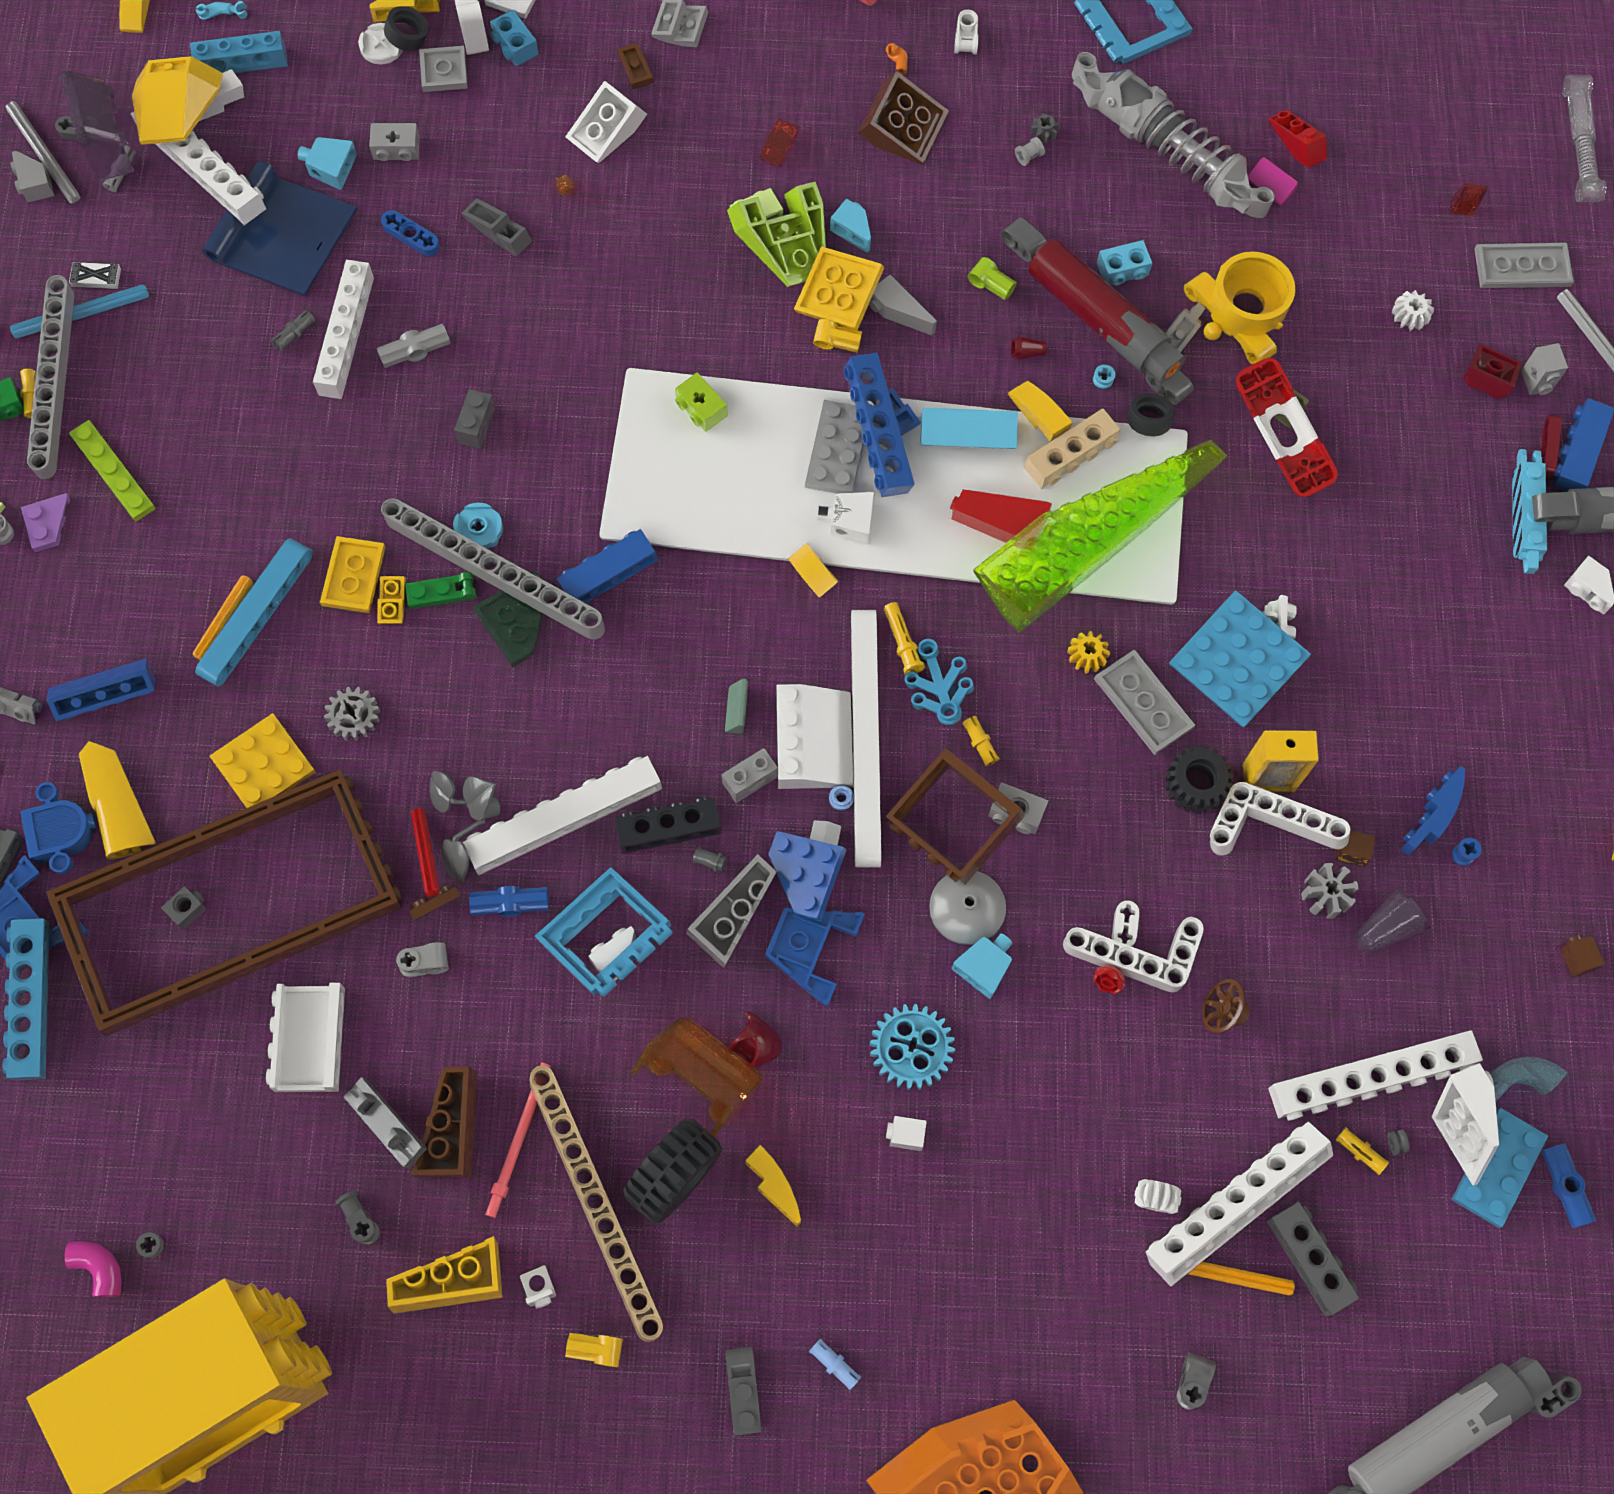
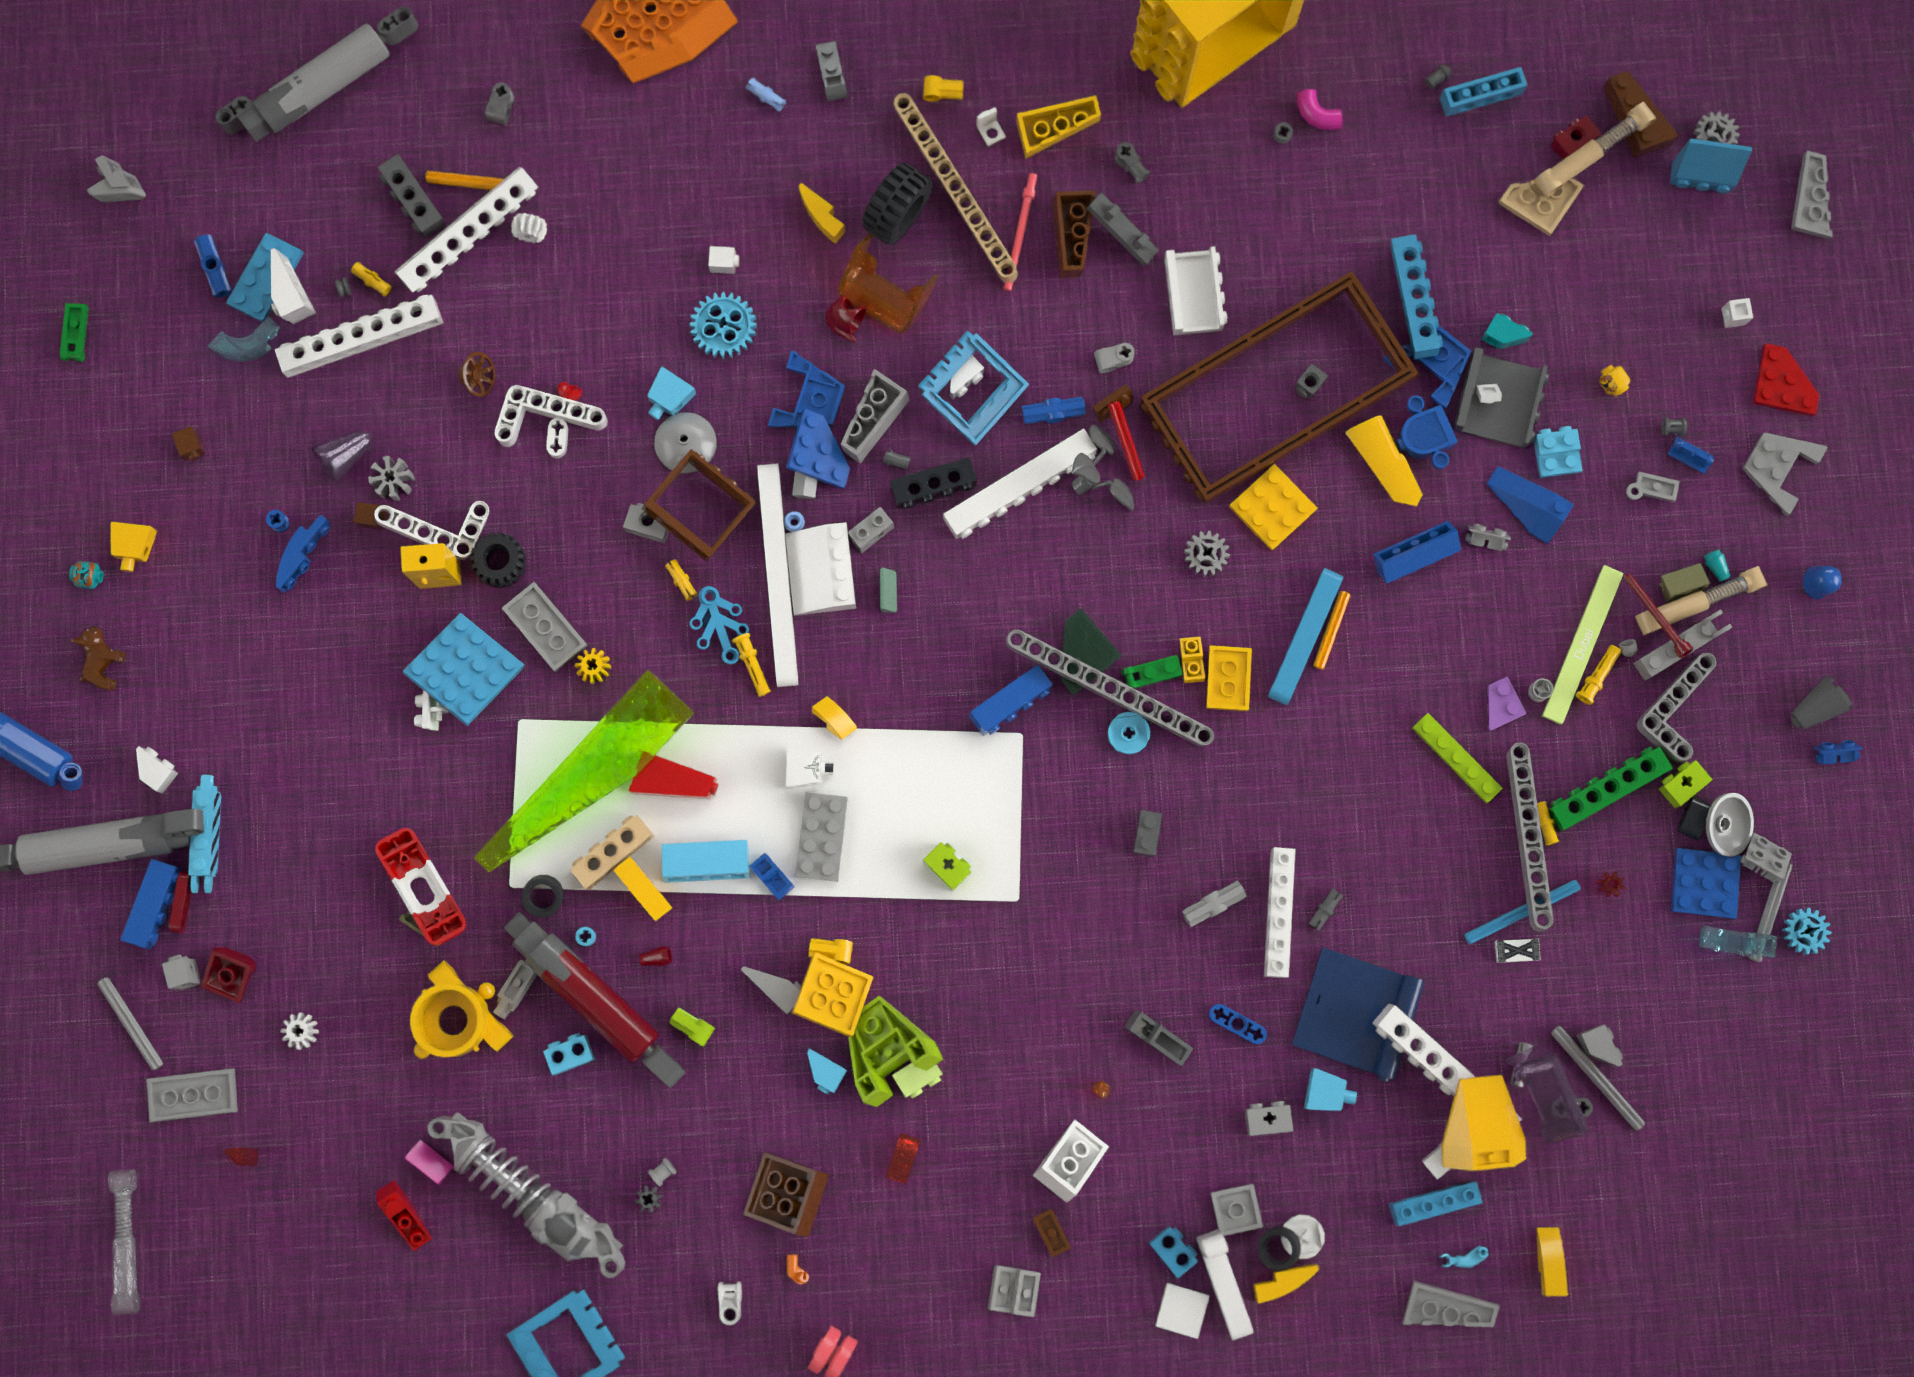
camera: 175 degrees right, 10 degrees up
(876, 391) = (763, 805): blue brick -> none

